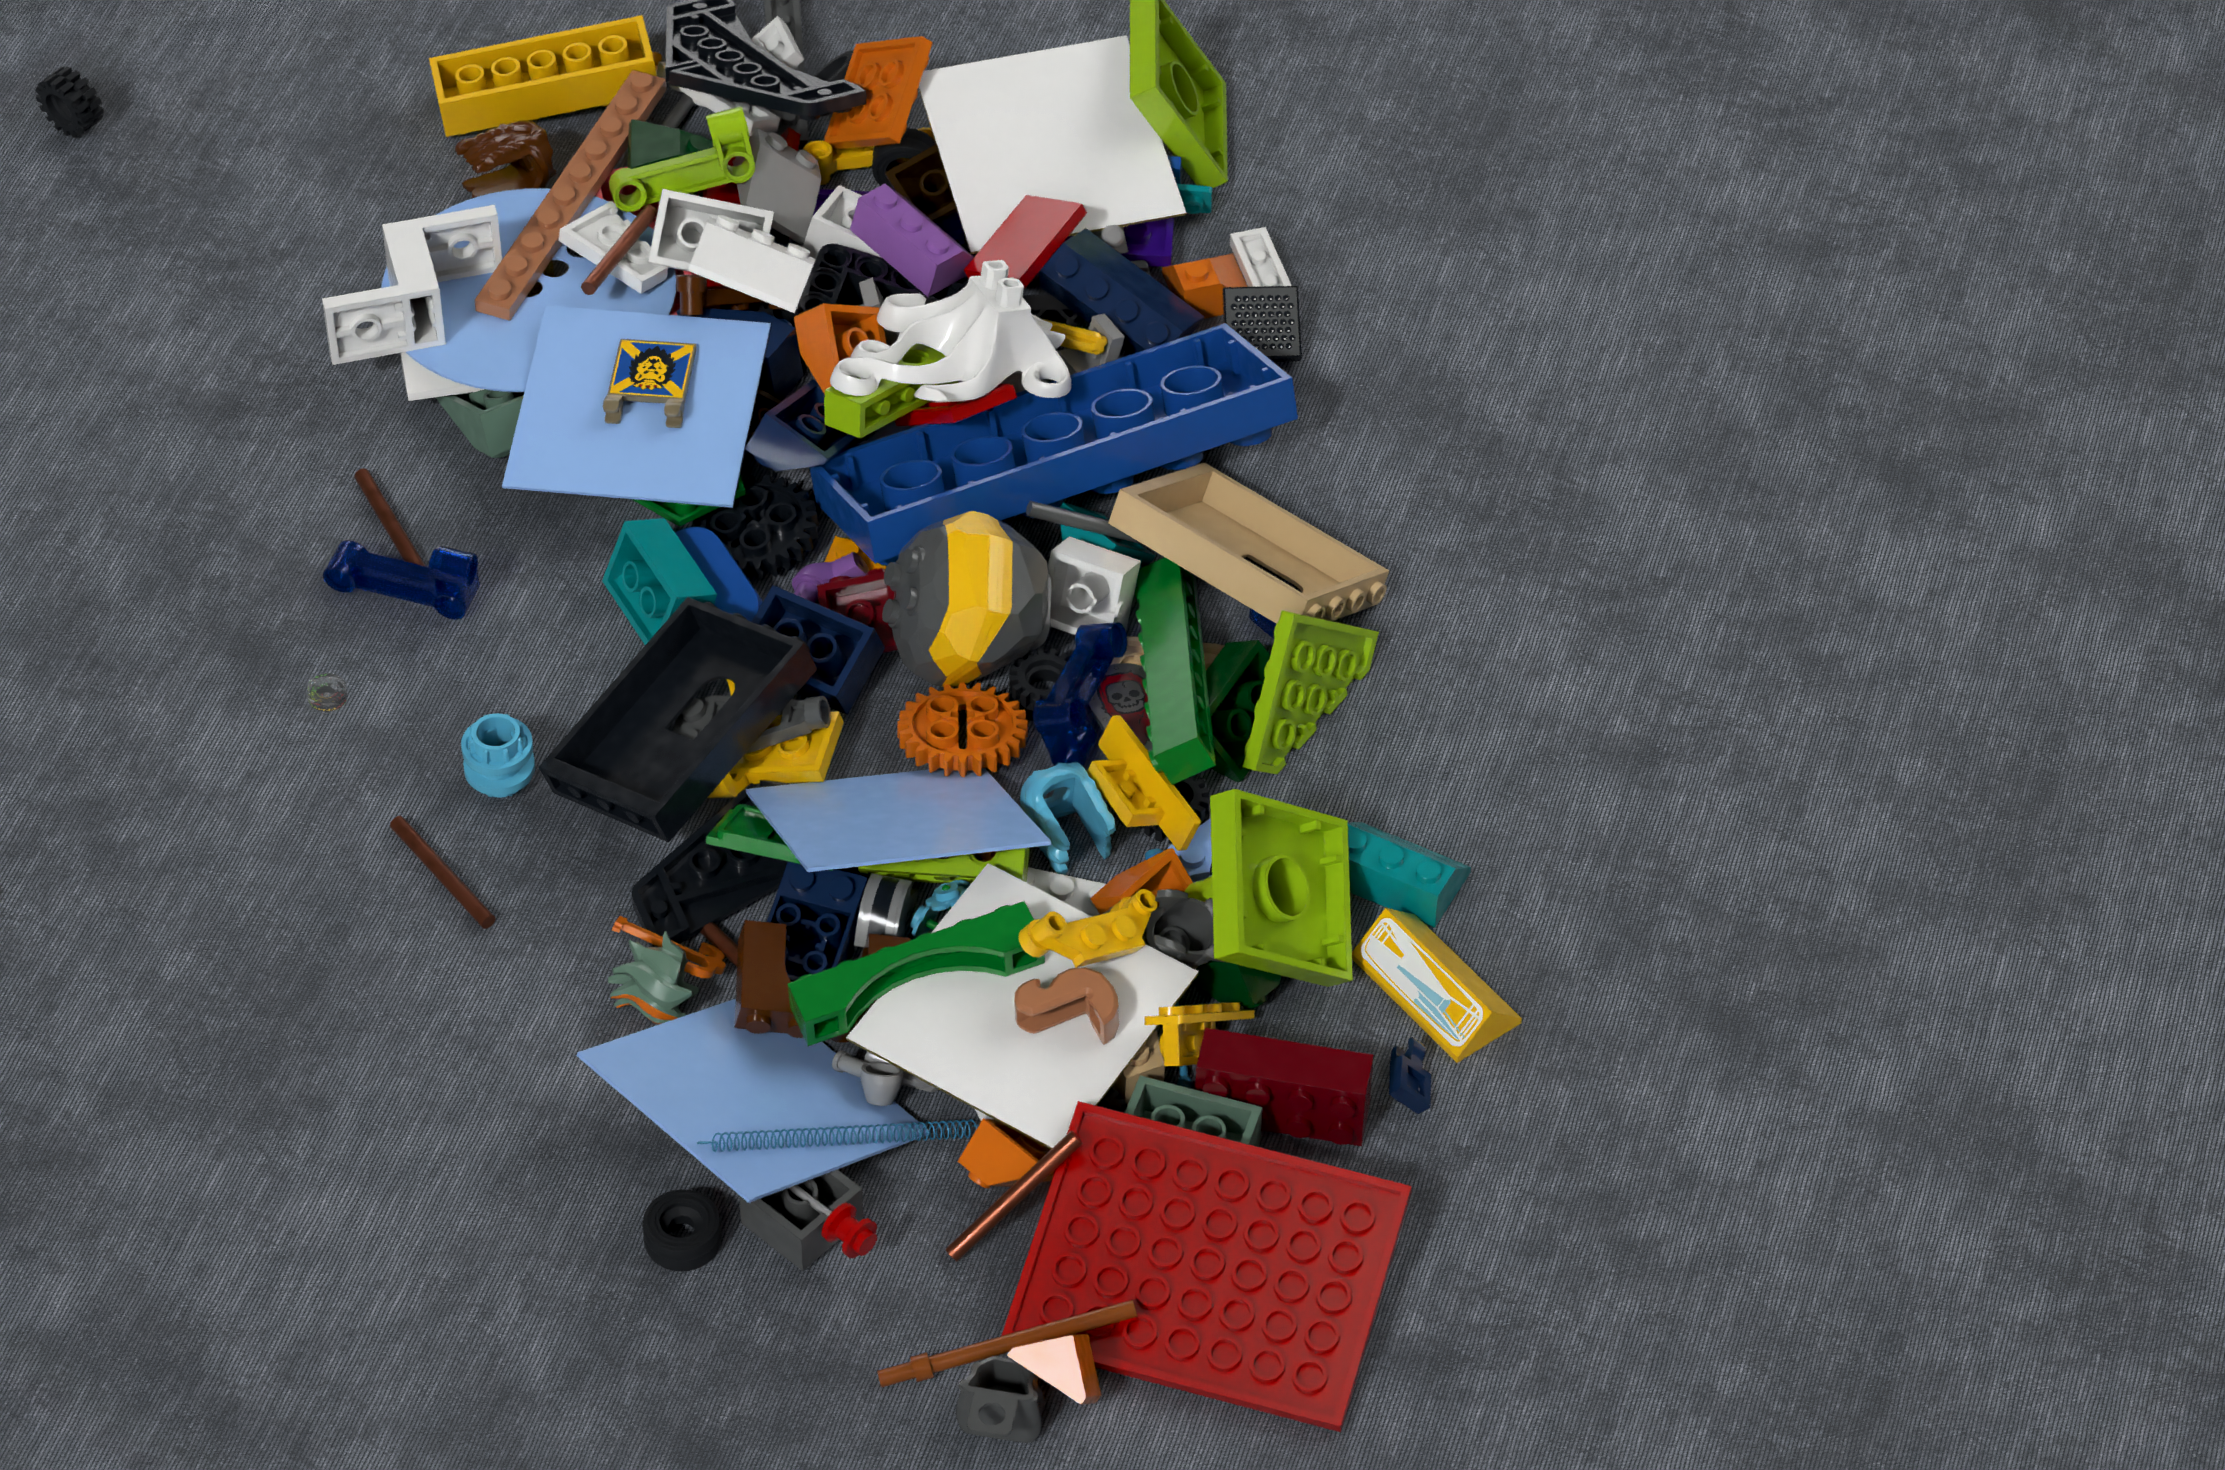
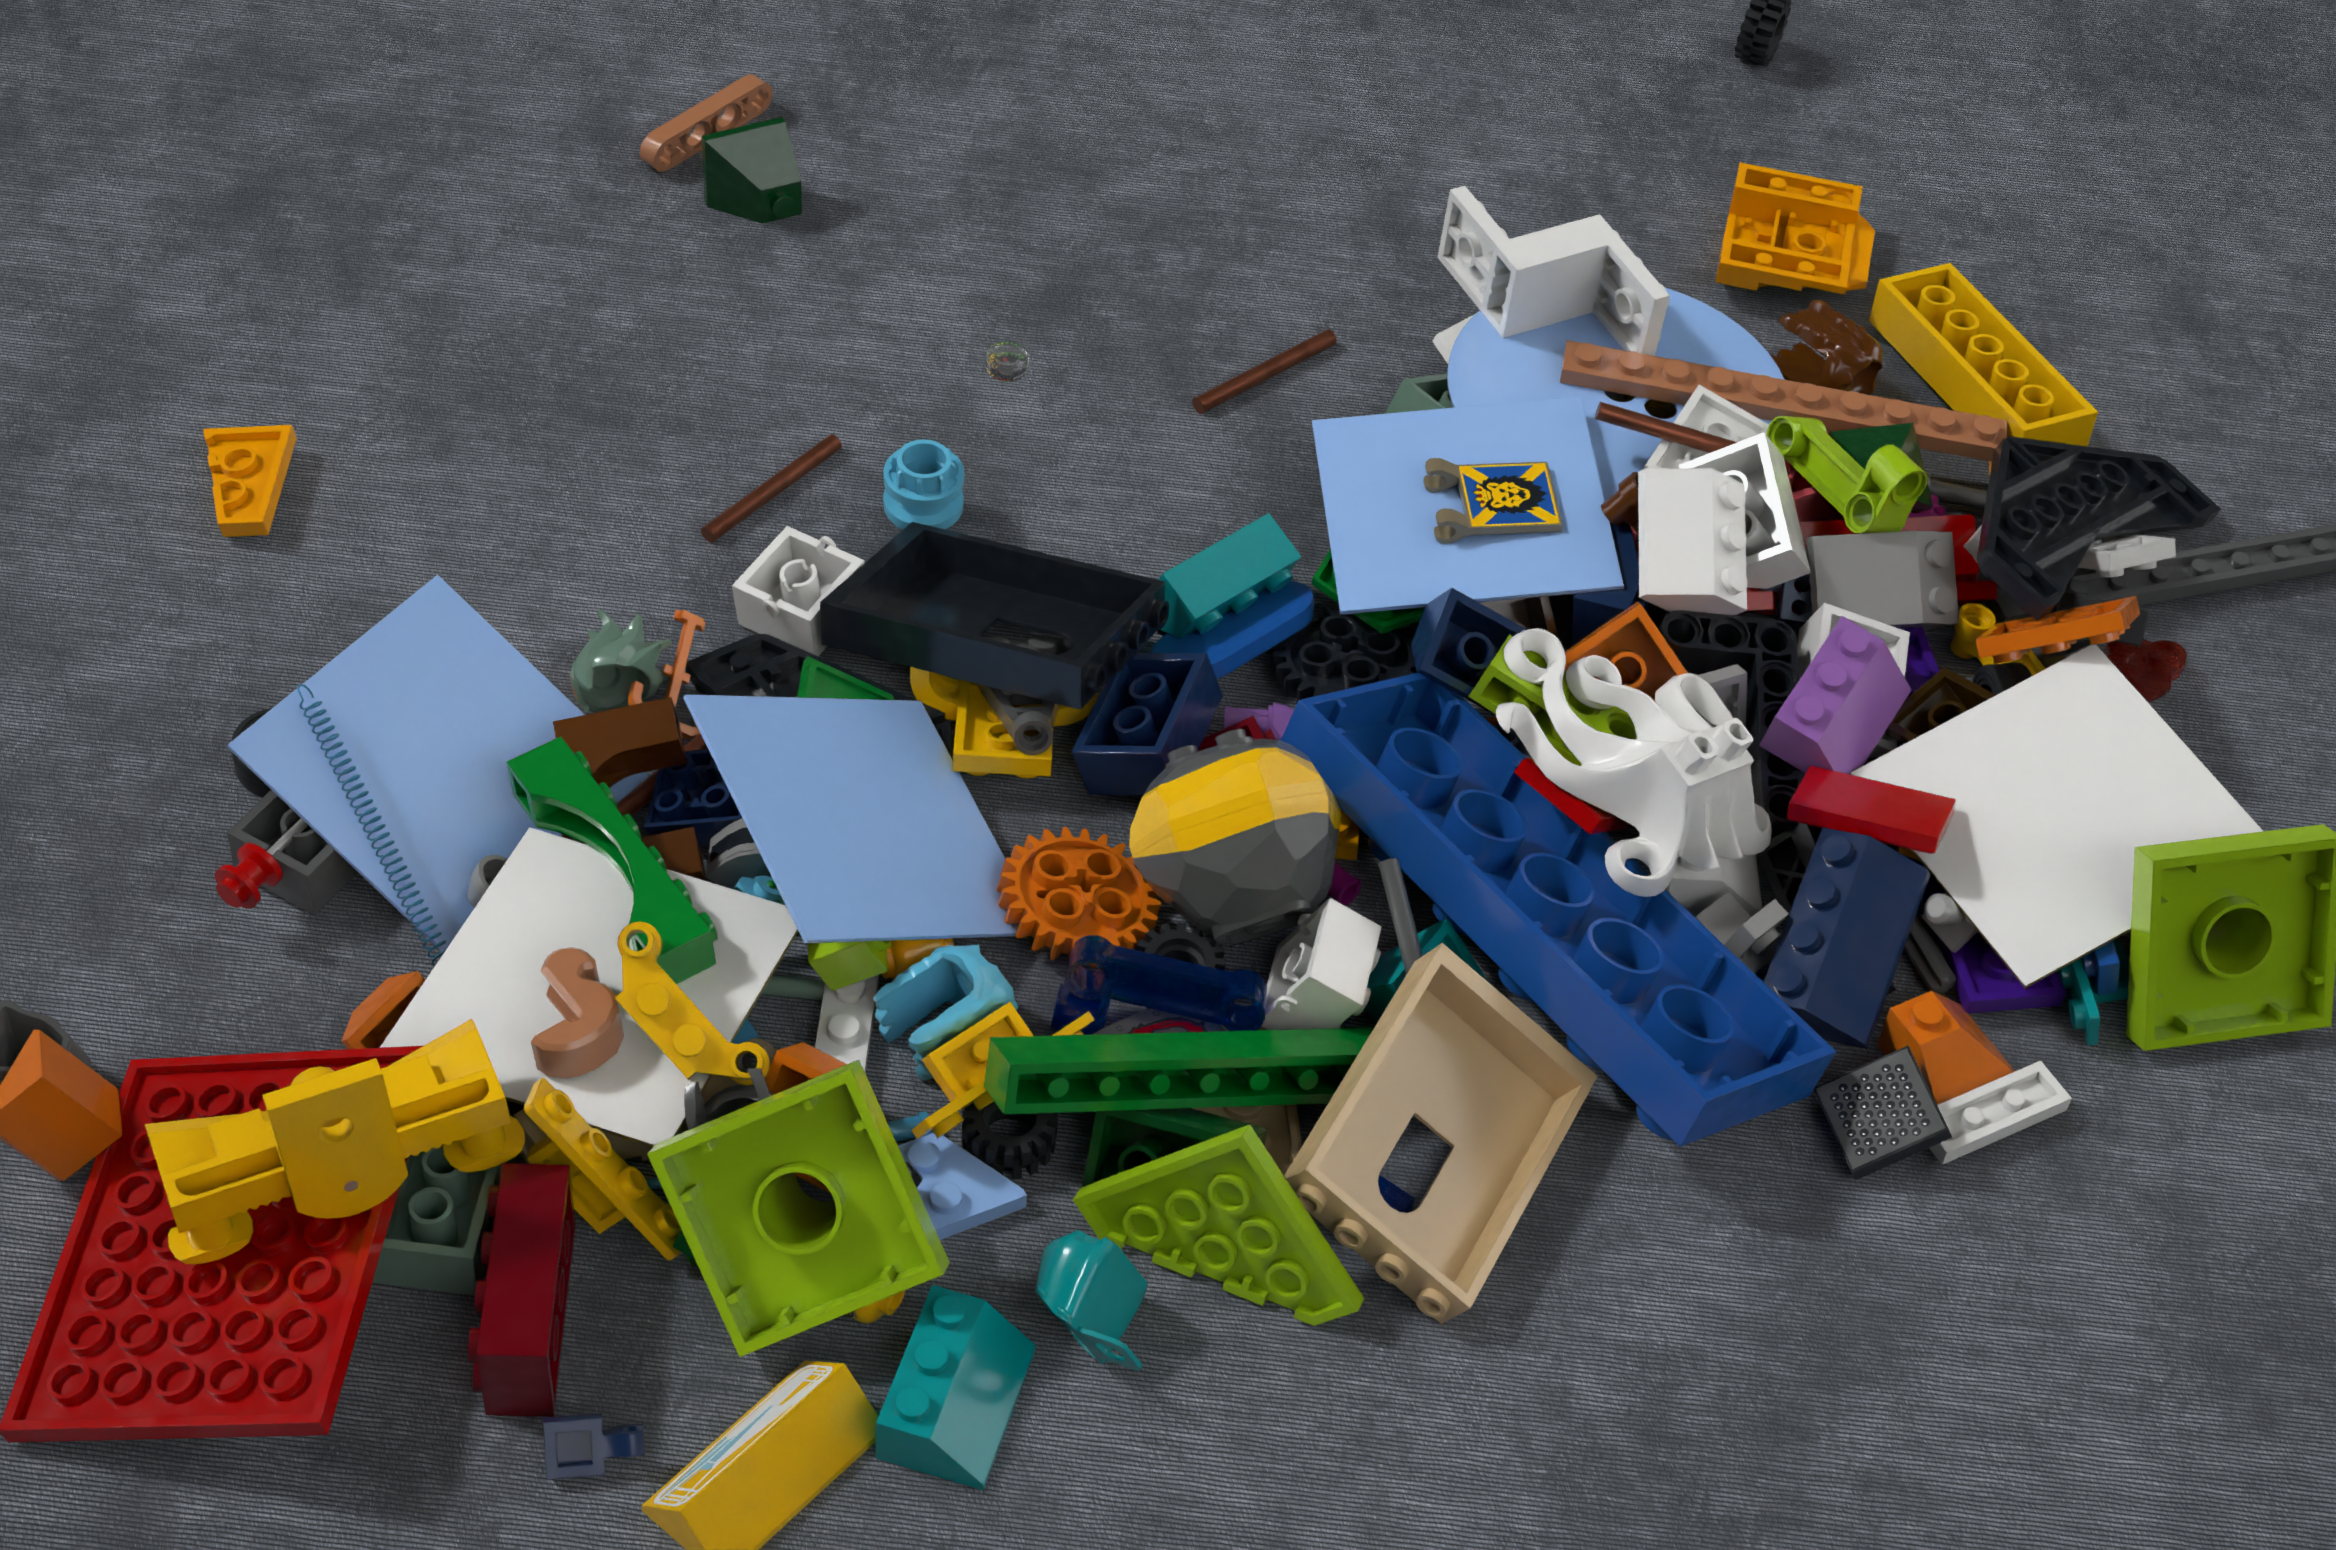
camera: 75 degrees right, 0 degrees up
(45, 821) = (752, 172): none -> dark green slope
(328, 1238) = (248, 475): none -> light orange wing
(342, 154) = (1794, 233): none -> light orange slope
(445, 584) = (1174, 390): clear blue piece -> none
(597, 852) = (787, 583): none -> white brick
(924, 1366) = (93, 1000): dark orange bar -> none
(1014, 1196) = (317, 1026): copper bar -> none
(1080, 338) = (1756, 895): yellow axle -> none
(1166, 1189) = (332, 1142): none -> yellow piece
(1339, 776) = (1092, 1293): none -> teal piece

